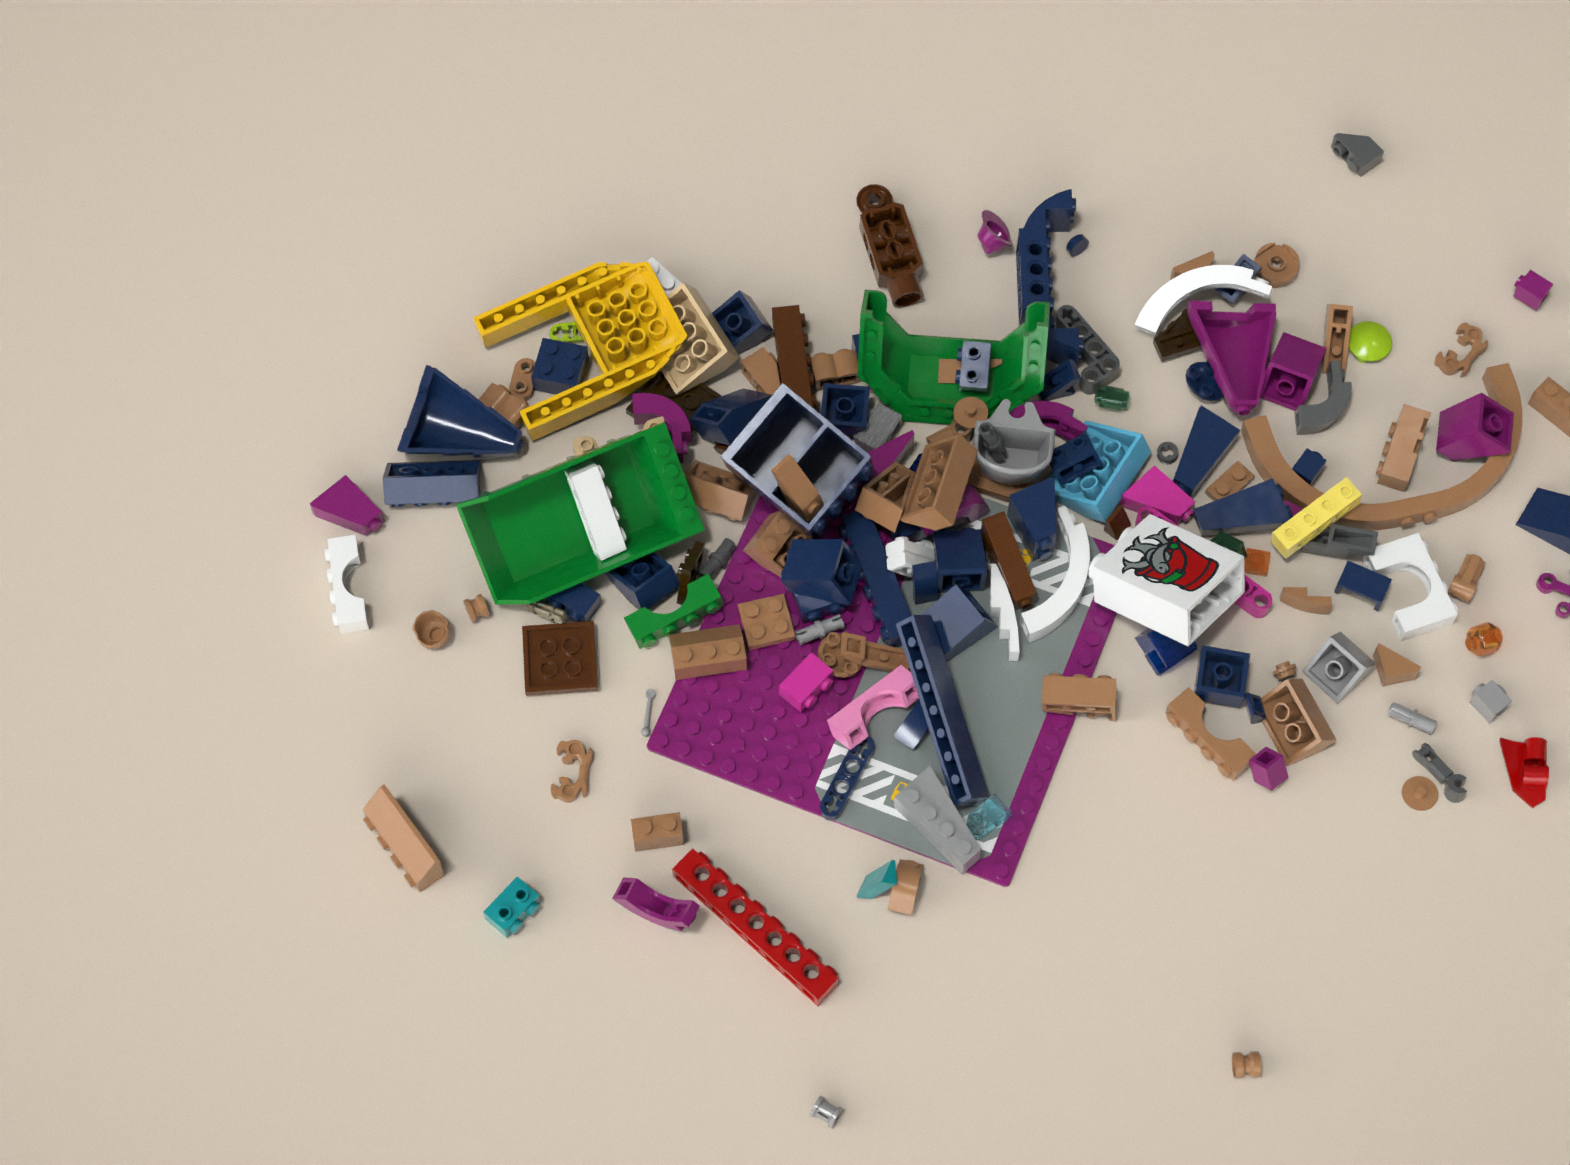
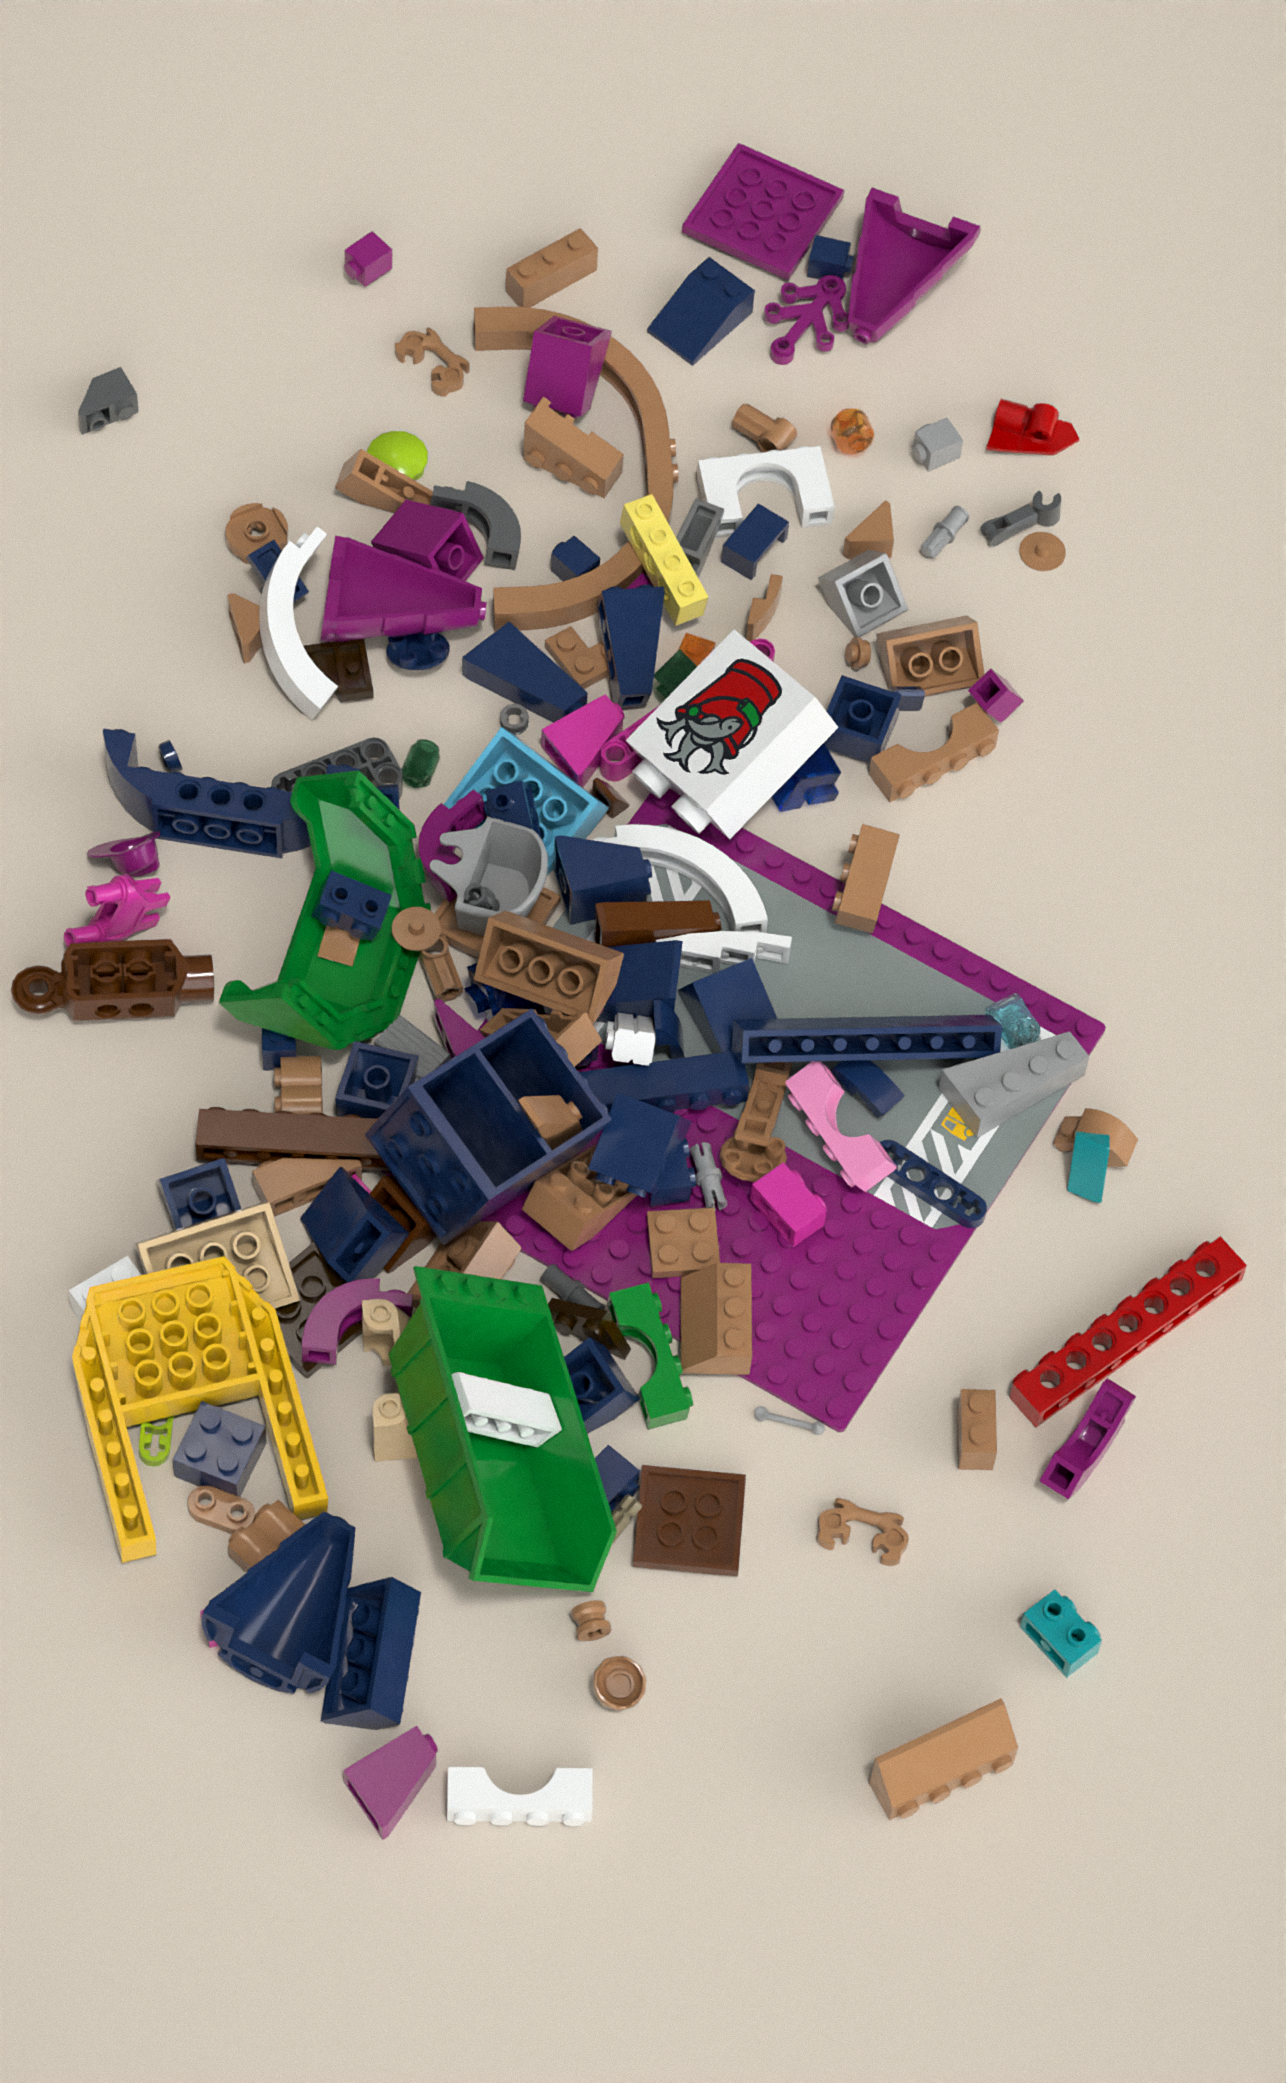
camera: 85 degrees left, 5 degrees down
(943, 234) = (120, 910): none -> dark pink connector

